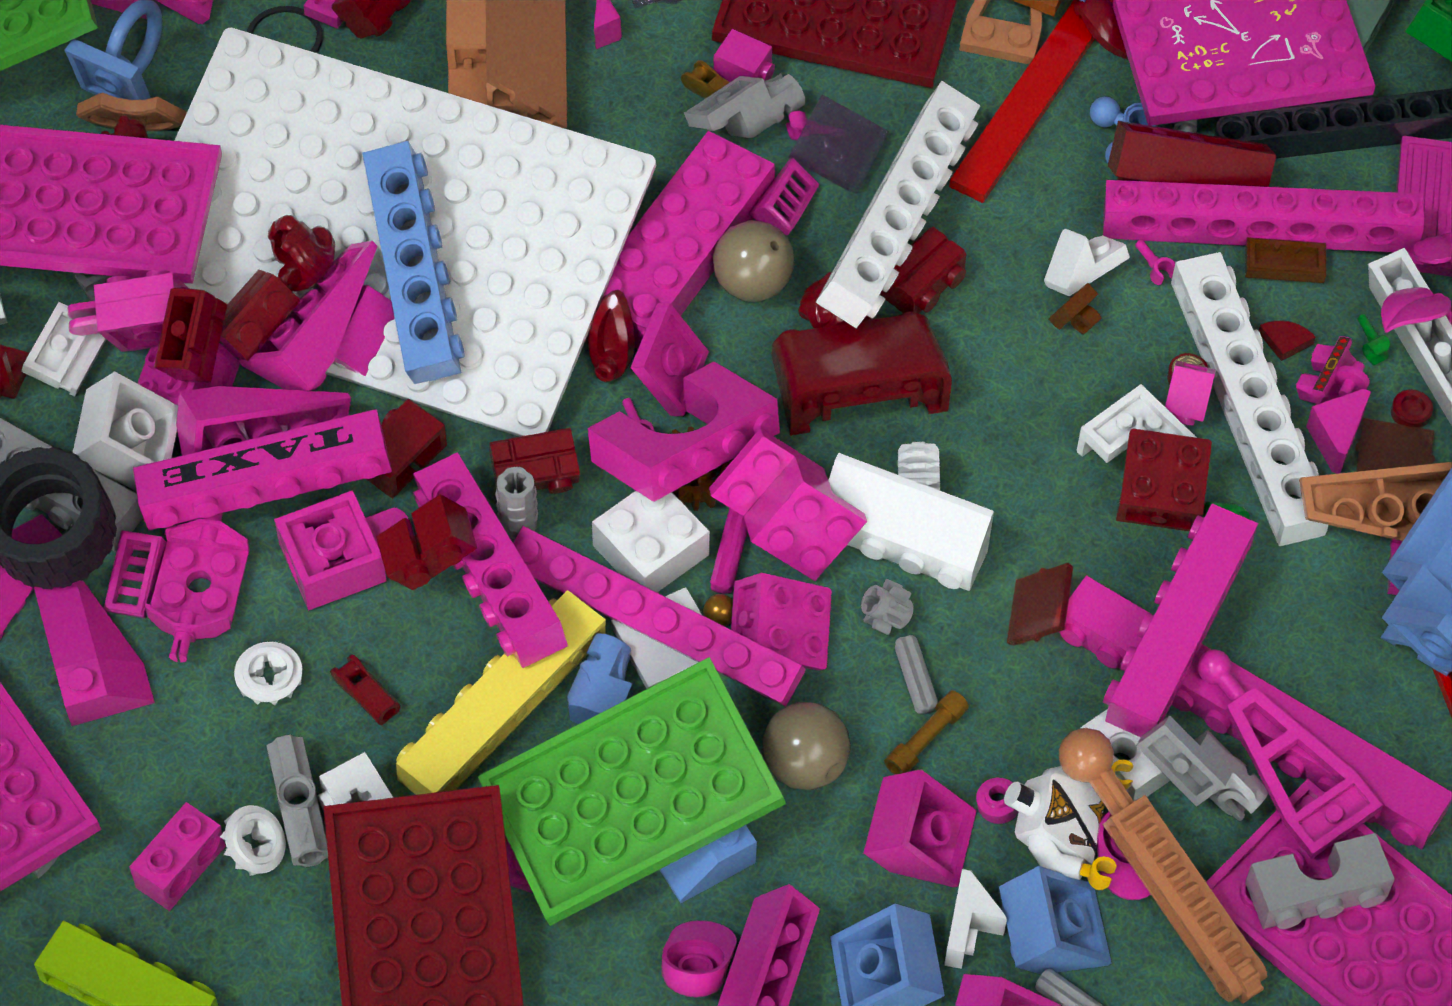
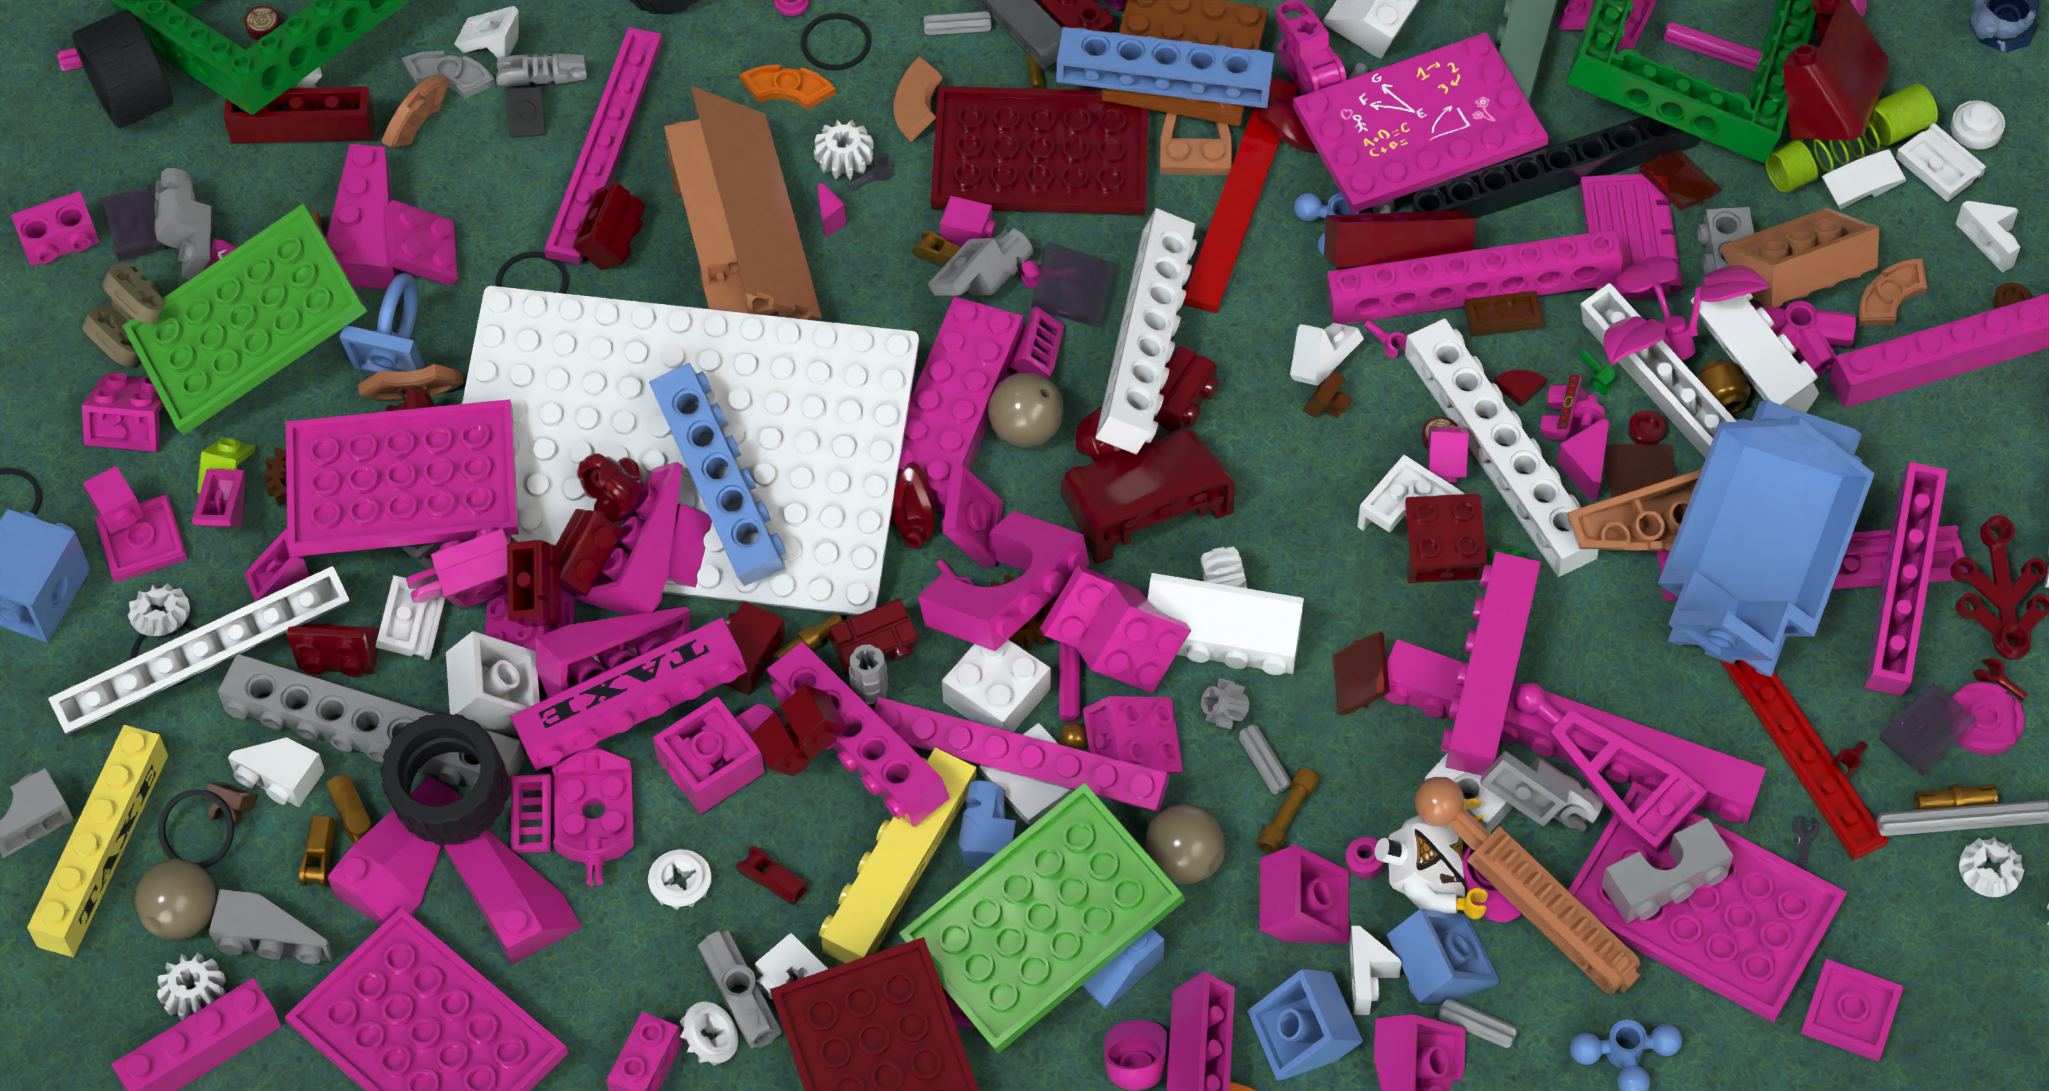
camera: 10 degrees left, 0 degrees up
(470, 450) = (810, 636): none -> pearl gold bar

